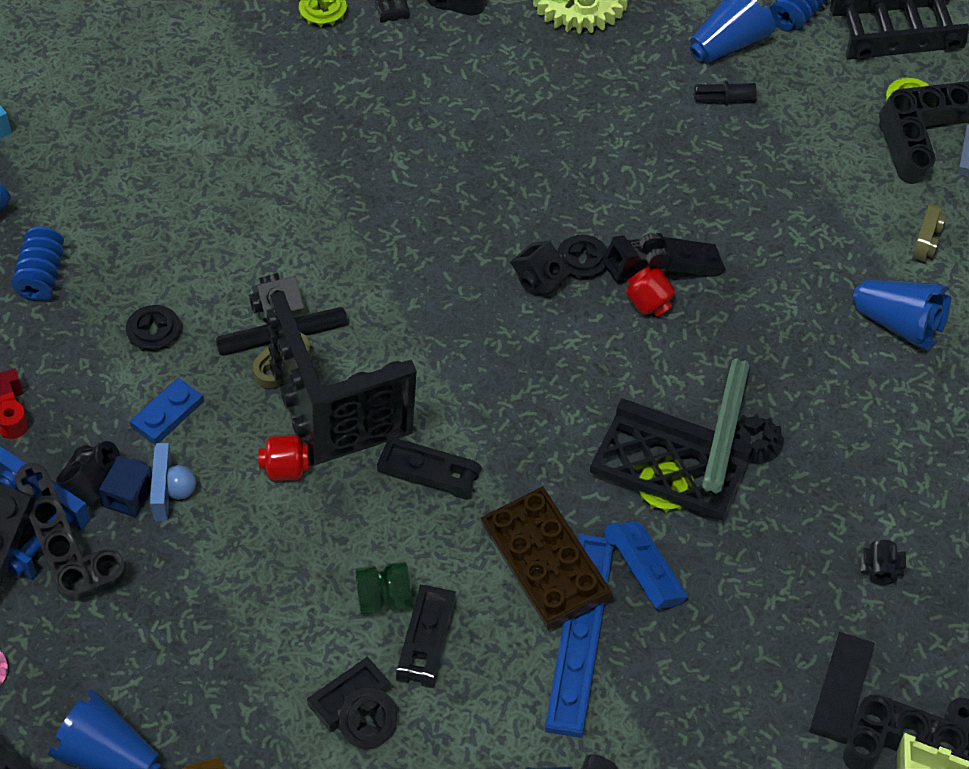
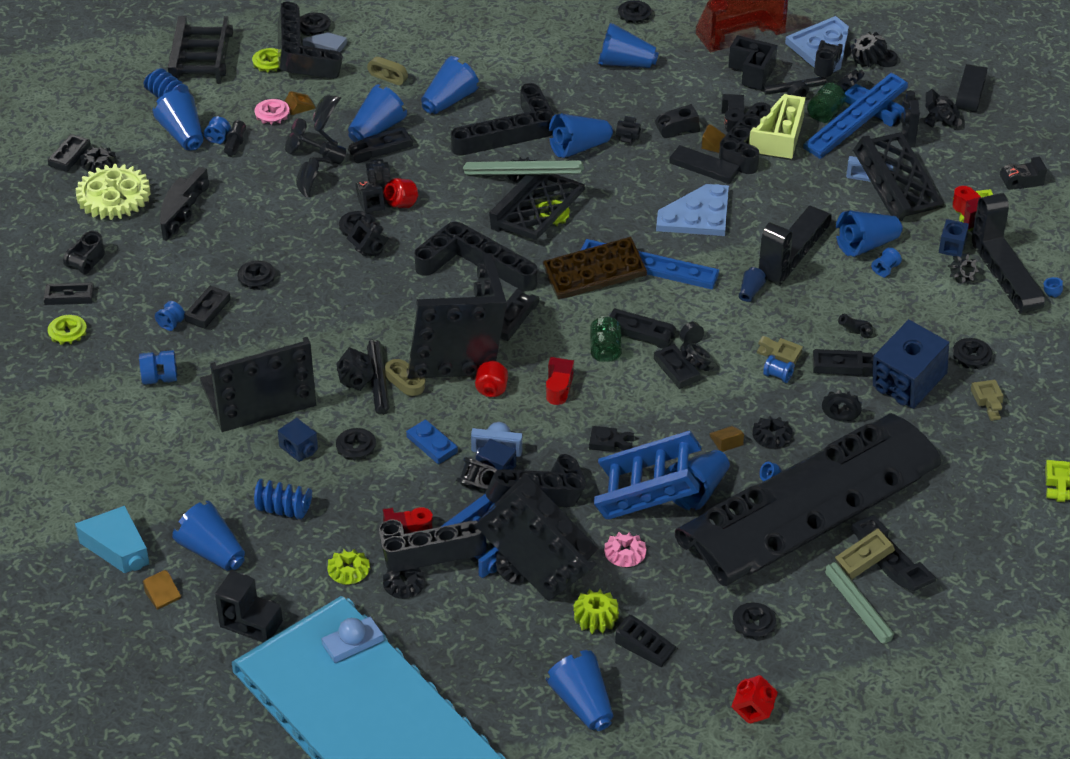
camera: 80 degrees left, 10 degrees down
(44, 655) = (654, 491): none -> blue fence
(146, 263) = (298, 439): none -> dark blue brick
(190, 619) = (607, 439): none -> black plate
(231, 203) = (261, 386): none -> black bracket
(257, 100) = (149, 367): none -> blue wheel
(294, 543) = (560, 380): none -> red leg
(356, 94) = (170, 315): none -> blue wheel
(383, 129) = (207, 306): none -> black plate
(422, 706) = (691, 332): none -> black tile
(446, 161) = (251, 269): none -> black gear
(565, 375) = (469, 244): none -> black beam
(568, 57) = (178, 201): none -> black slope
(646, 563) = (607, 226): blue plate -> none
(718, 194) = (329, 150): none -> black plant
(720, 691) = (697, 212): none -> medium blue plate
(733, 69) = (217, 130): none -> blue wheel
(761, 255) = (380, 144): none -> black hinge
(798, 112) = (278, 107): none -> bright pink gear
(799, 353) = (507, 130): none -> black beam
(810, 232) = (378, 113): none -> blue cone
(829, 149) = (298, 103): none -> pearl gold slope
(846, 493) = (577, 133): none -> blue cone
(909, 688) = (712, 138): none -> pearl gold slope
(930, 634) = (678, 121): none -> black leg

